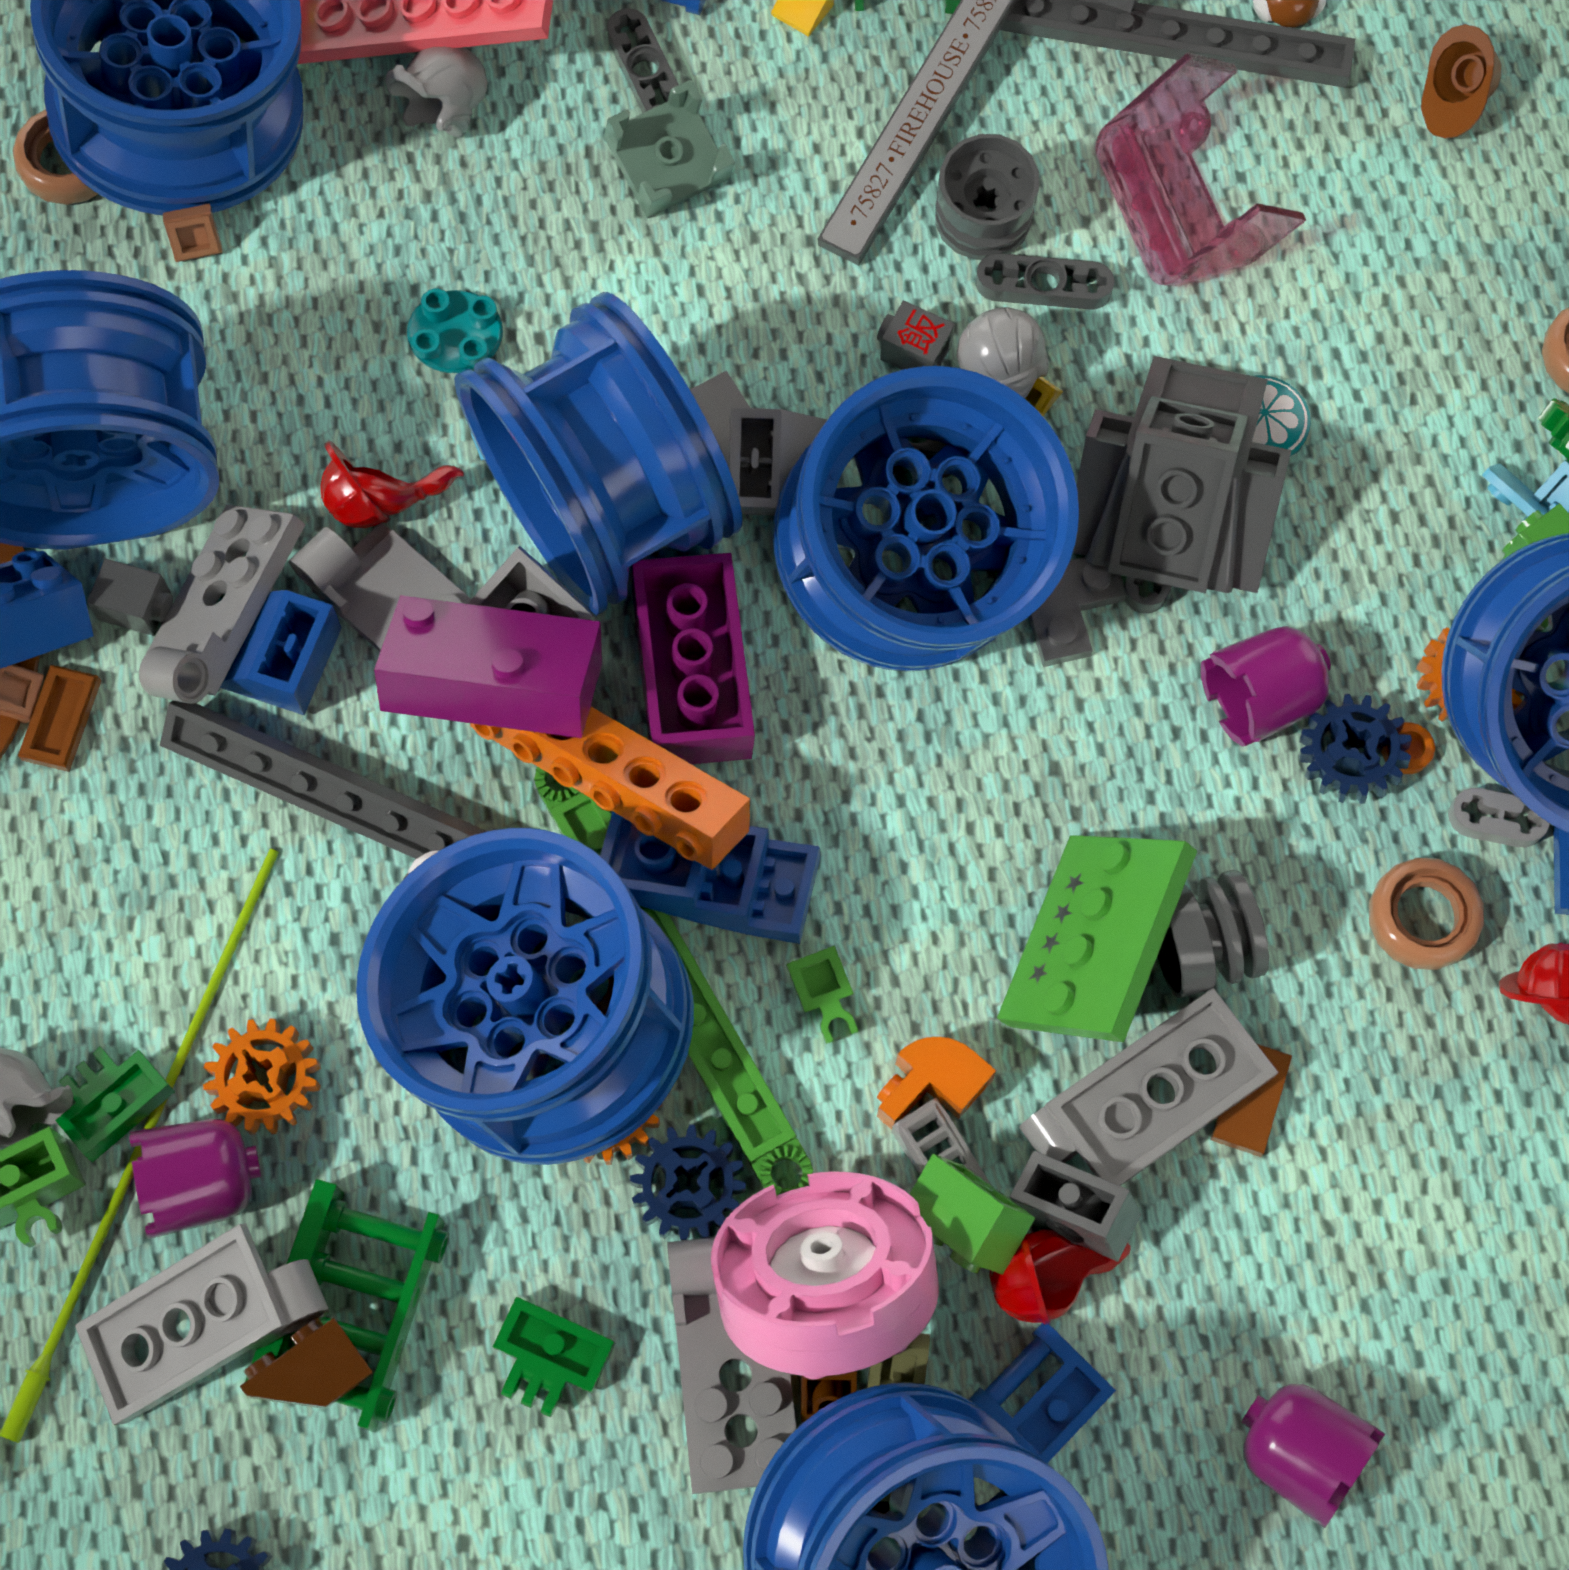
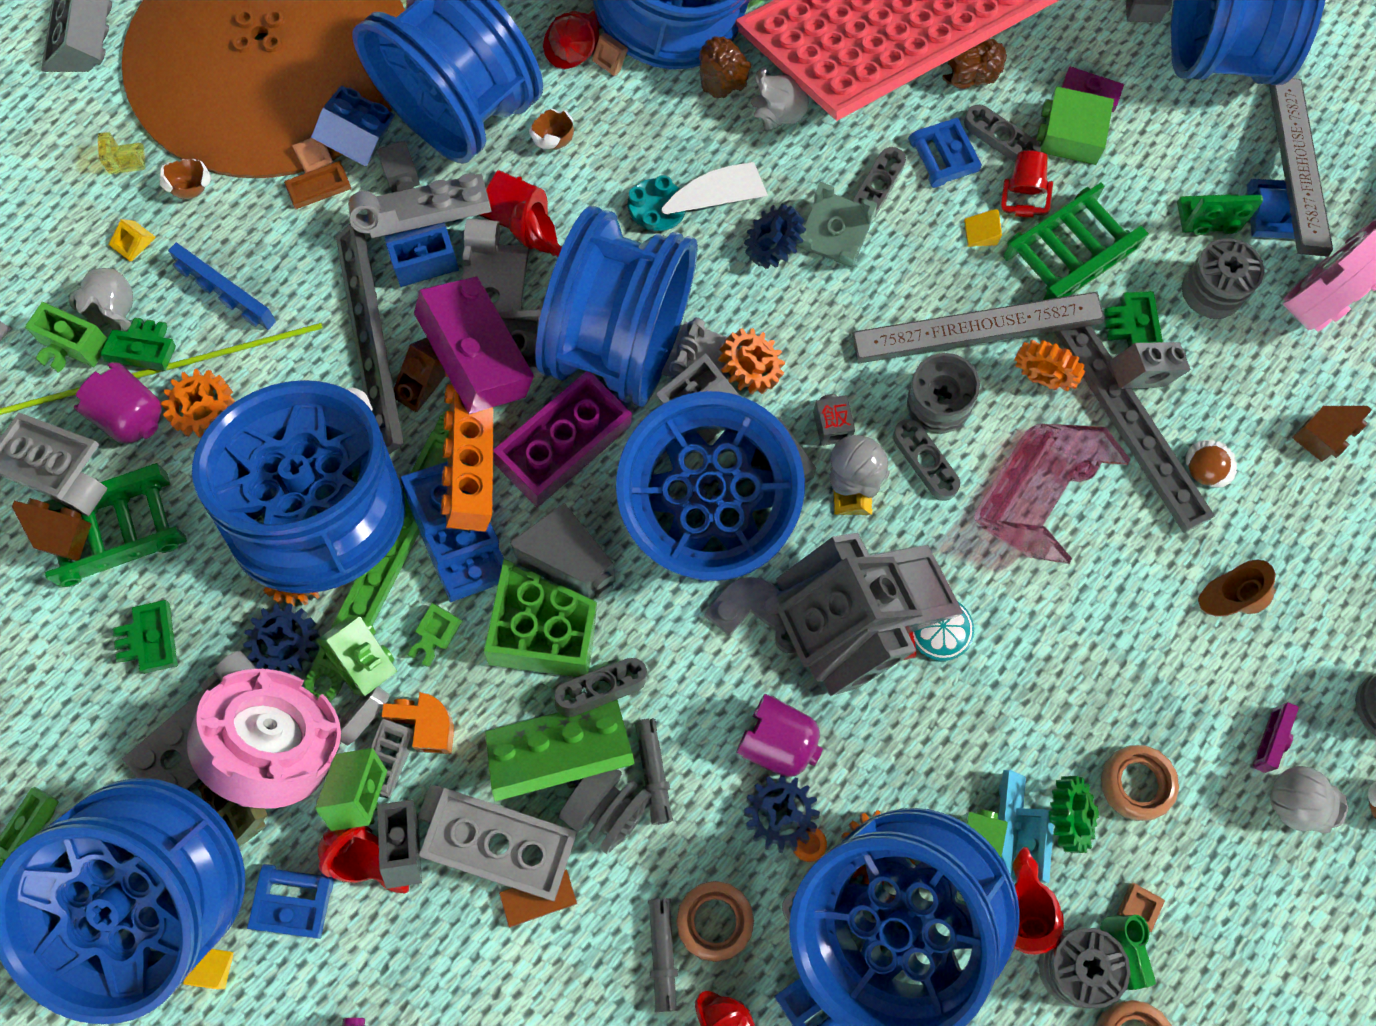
camera: 50 degrees right, 0 degrees up
(92, 942) = (230, 294): none -> blue plate
(132, 247) = (571, 39): none -> red piece
(242, 374) = (552, 129): none -> dark orange hair
(291, 489) = (503, 194): none -> red piece
(336, 118) = (722, 67): none -> reddish brown hair
(457, 769) = (418, 375): none -> reddish brown slope
(494, 246) = (717, 188): none -> white sticker
(624, 227) = (774, 236): none -> dark blue gear
(766, 373) = (751, 361): none -> orange gear
(791, 1096) = (358, 654): none -> brick
(858, 756) = (565, 554): none -> dark grey slope
(863, 1140) = (361, 714): none -> light grey beam
(918, 854) = (539, 625): none -> bright green wedge
(1045, 60) = (1049, 365): none -> orange gear
(1056, 860) = (595, 699): none -> dark grey beam
(1207, 860) = (653, 771): none -> dark grey pin
(1430, 1005) = (662, 955): none -> dark grey pin

